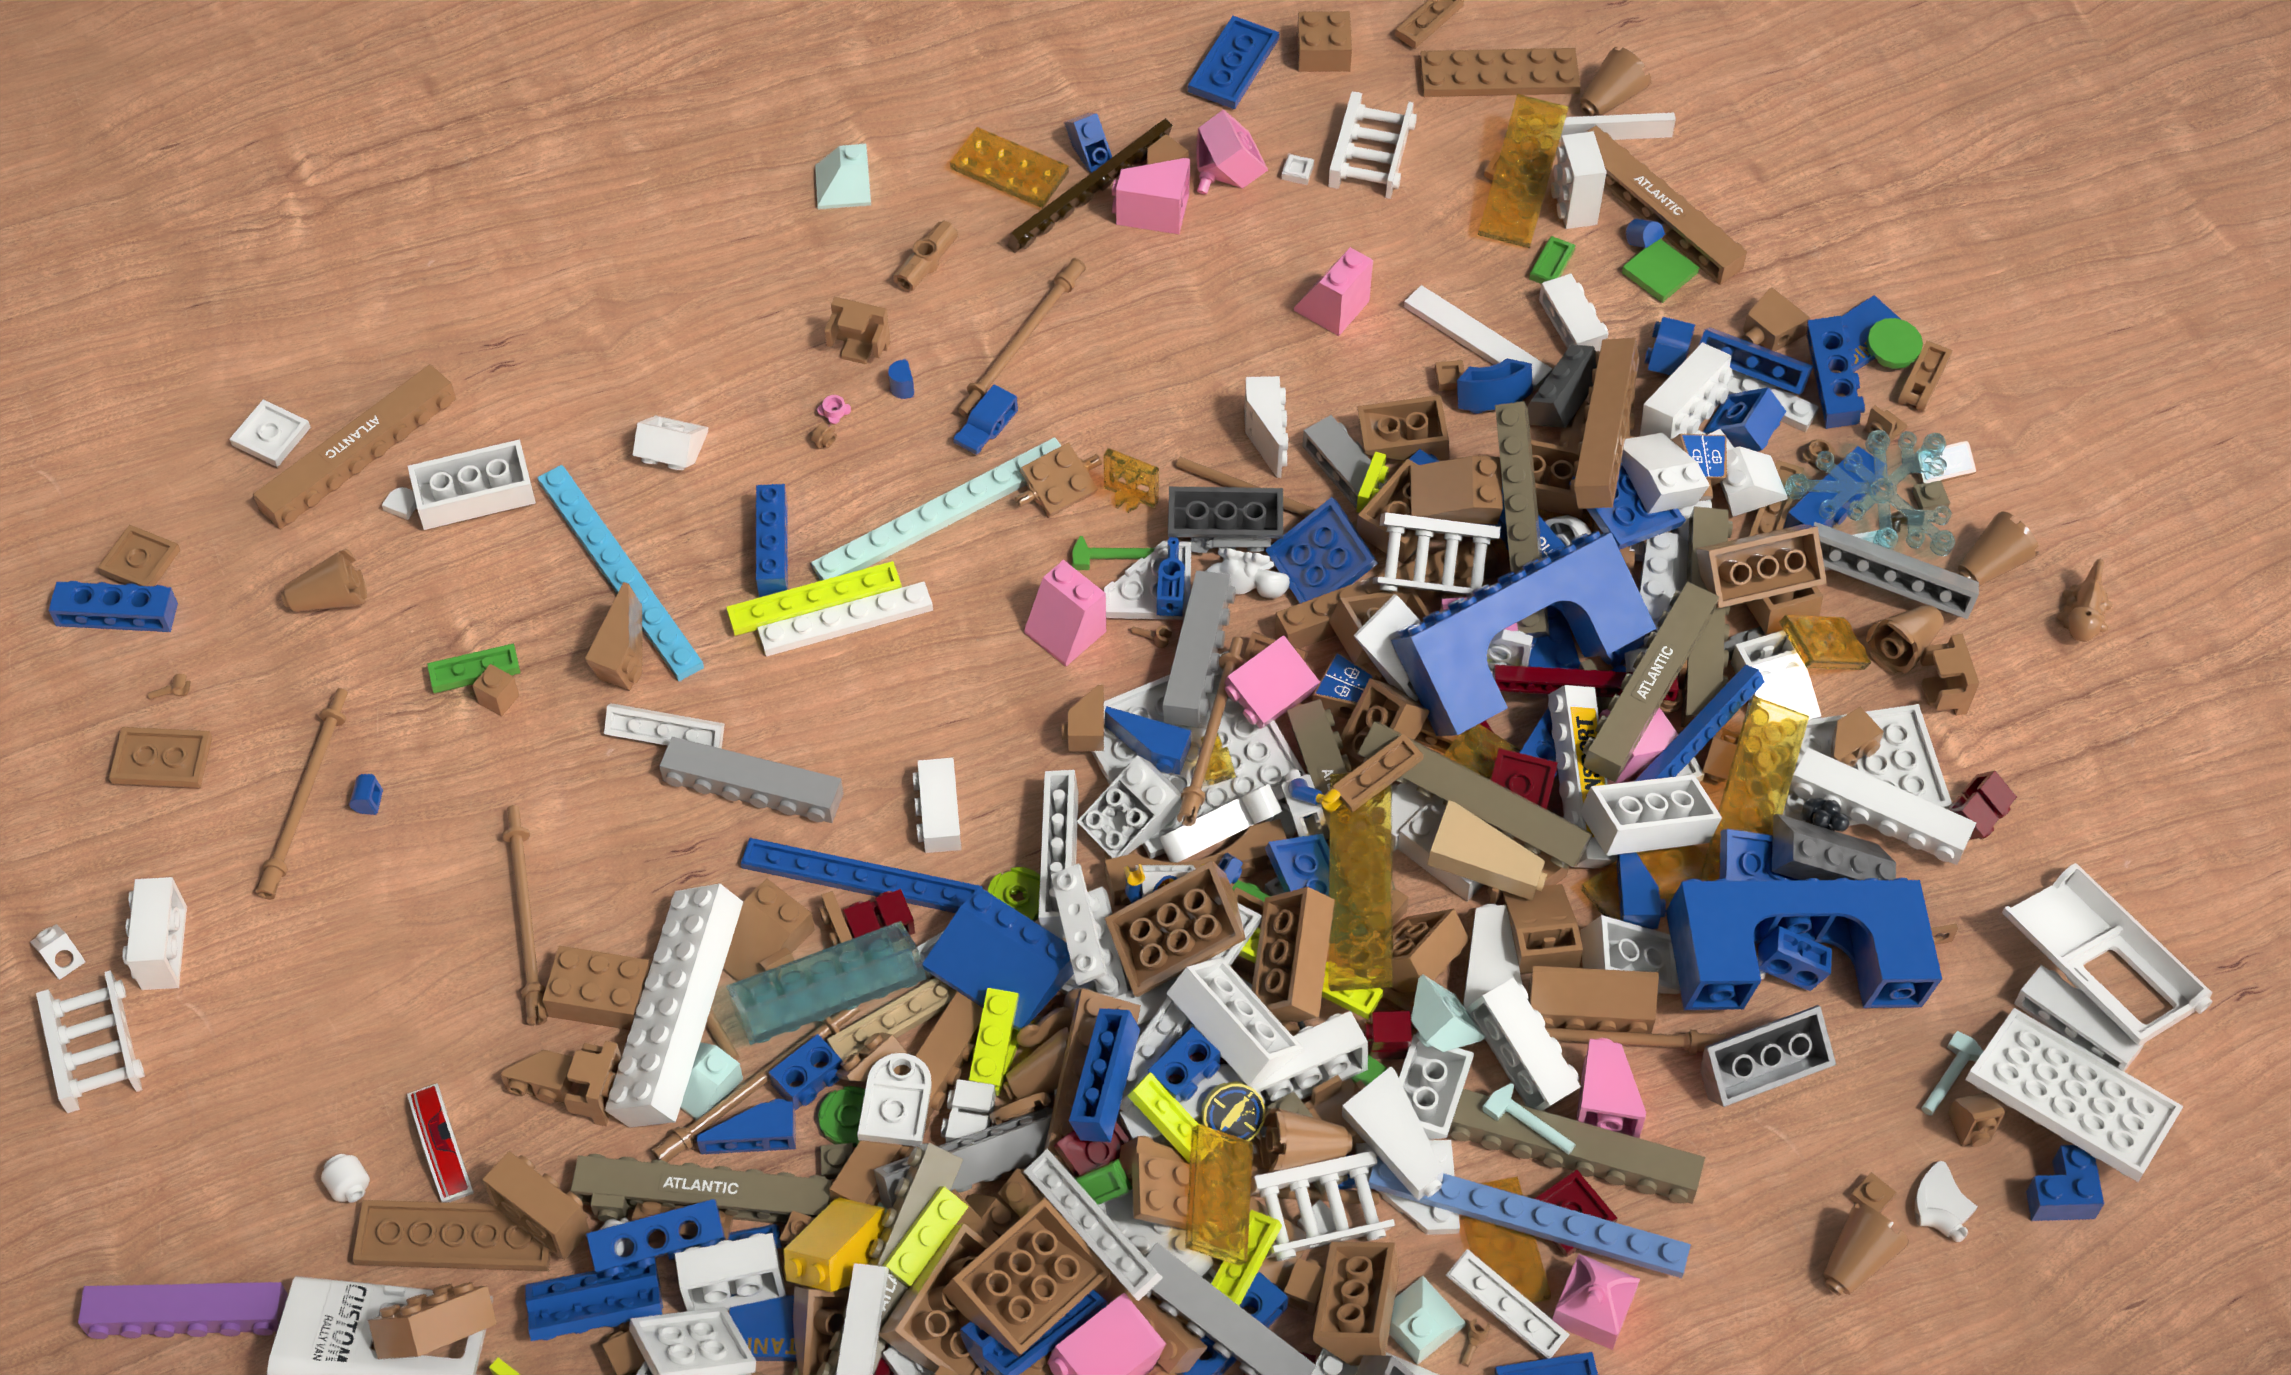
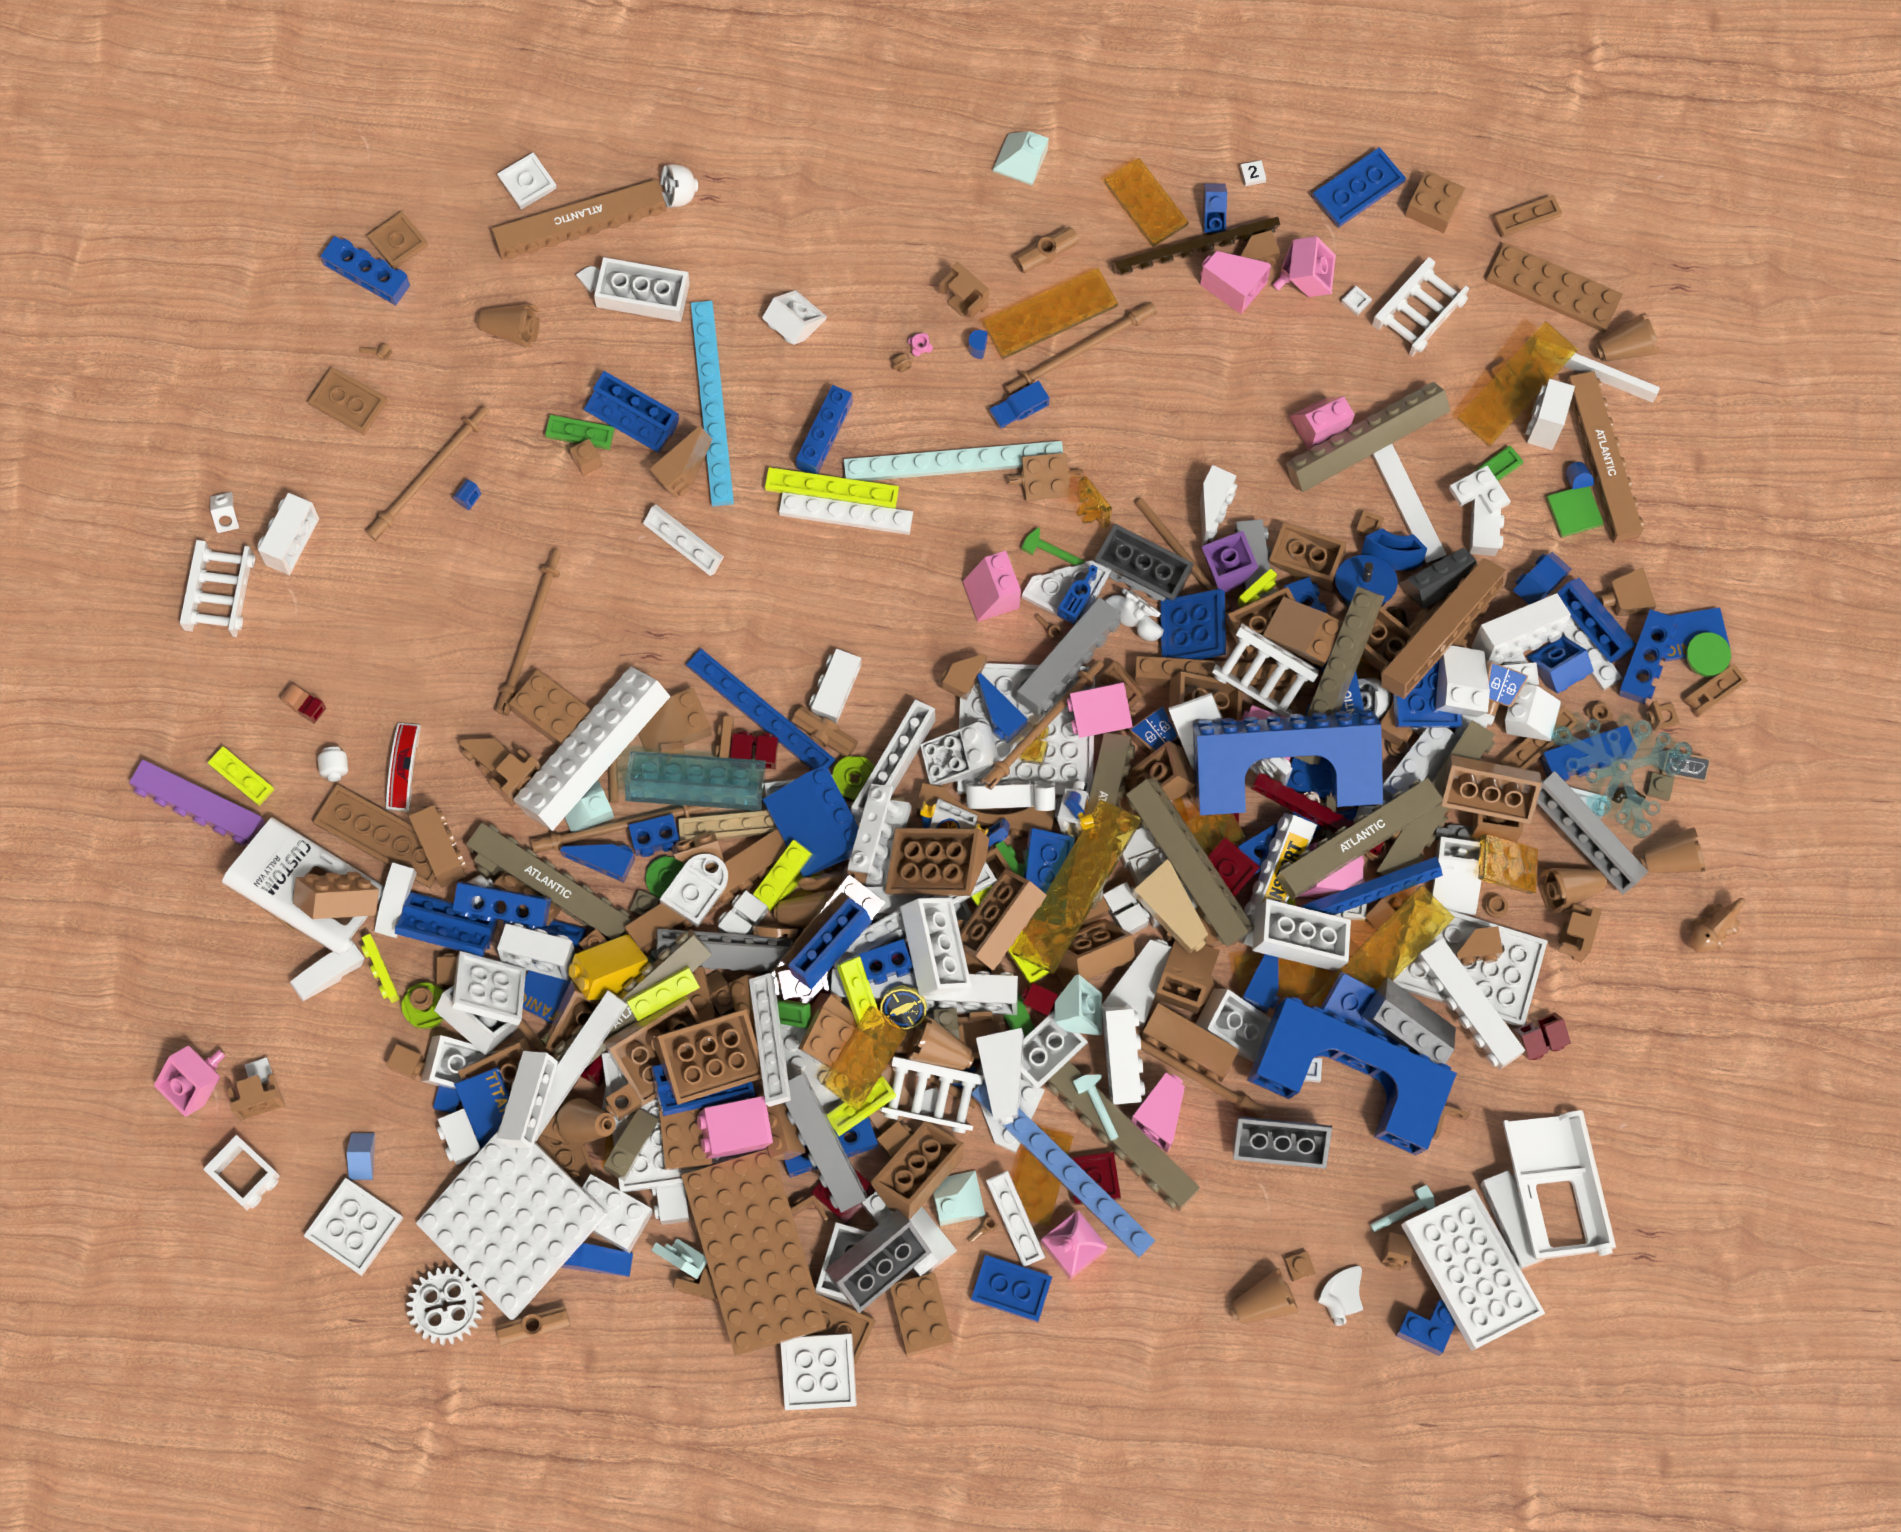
camera: 25 degrees right, 15 degrees up
(228, 1250) = (241, 776): none -> neon yellow plate
(270, 1125) = (303, 703): none -> leg
(457, 361) = (678, 184): none -> white cylinder
(509, 1302) = (394, 896): none -> white slope
(527, 617) = (632, 412): none -> blue brick
(751, 780) = (722, 607): light grey brick -> none
(952, 861) = (824, 732): none -> medium nougat piece
(966, 317) = (1050, 313): none -> clear yellow plate
(1110, 95) = (1253, 173): none -> white tile
(1321, 470) = (1230, 561): none -> medium lavender slope
(1378, 772) = (1128, 817): medium nougat plate -> none
(1394, 288) = (1368, 436): none -> dark tan brick
(1426, 891) = (1126, 910): none -> white piece
(1474, 428) = (1368, 573): none -> blue piece
(1552, 278) = (1482, 485): none -> white plate
(1794, 958) = (1343, 1082): blue brick -> none
(1824, 814) = (1425, 991): black piece -> none
(1838, 696) = (1496, 906): none -> medium nougat plate

